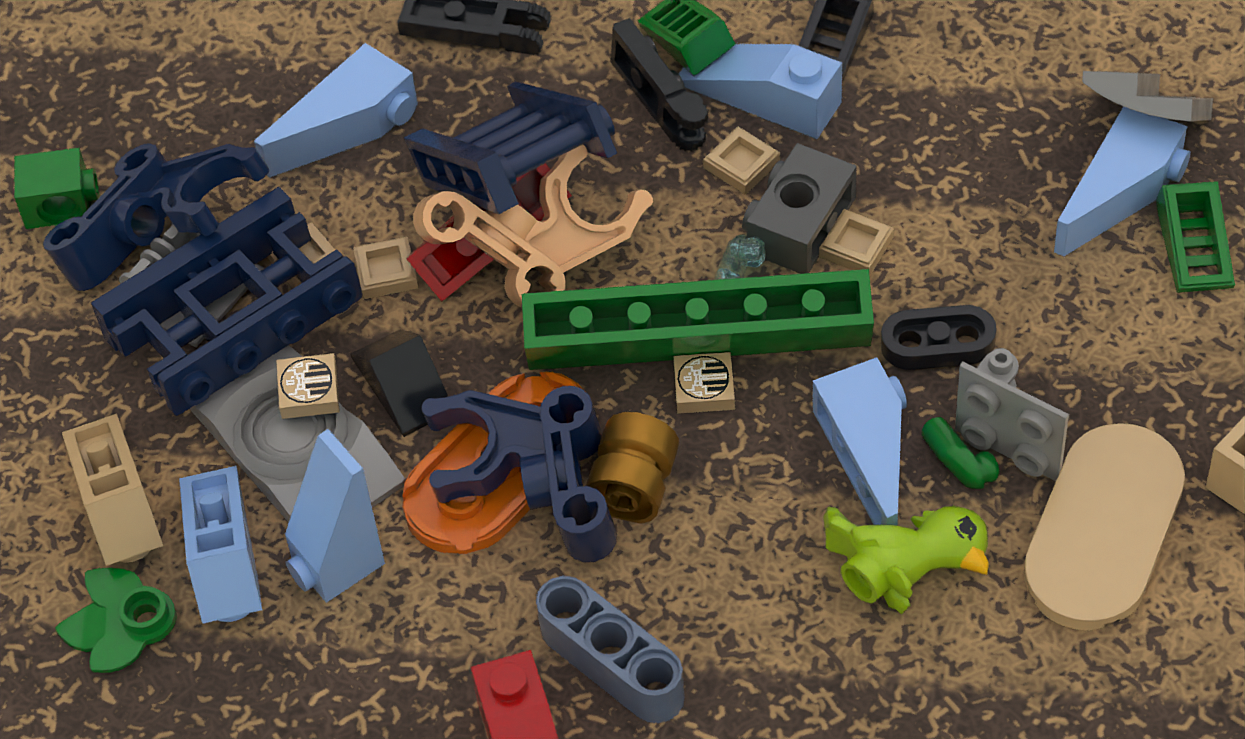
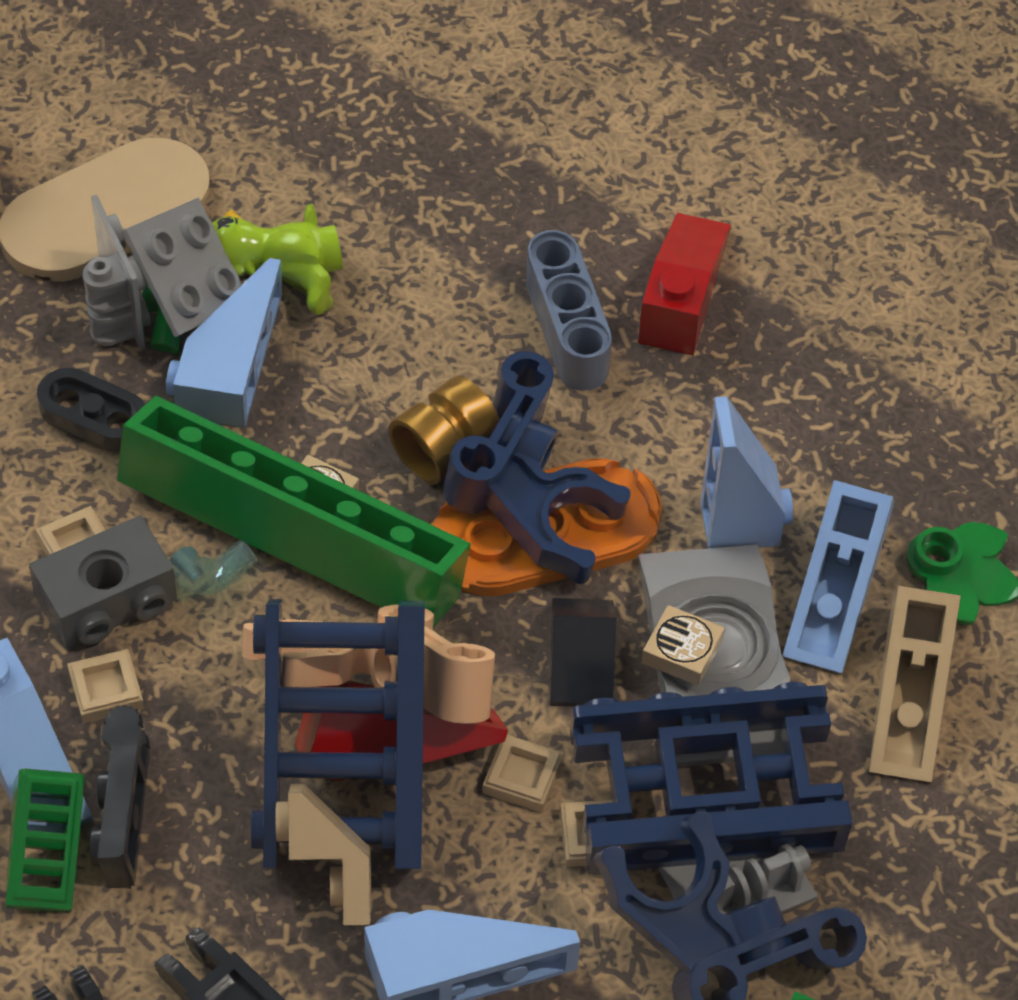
camera: 155 degrees left, 0 degrees up
(472, 97) = (320, 834): none -> tan slope
(957, 450) = (183, 264): none -> light grey hinge

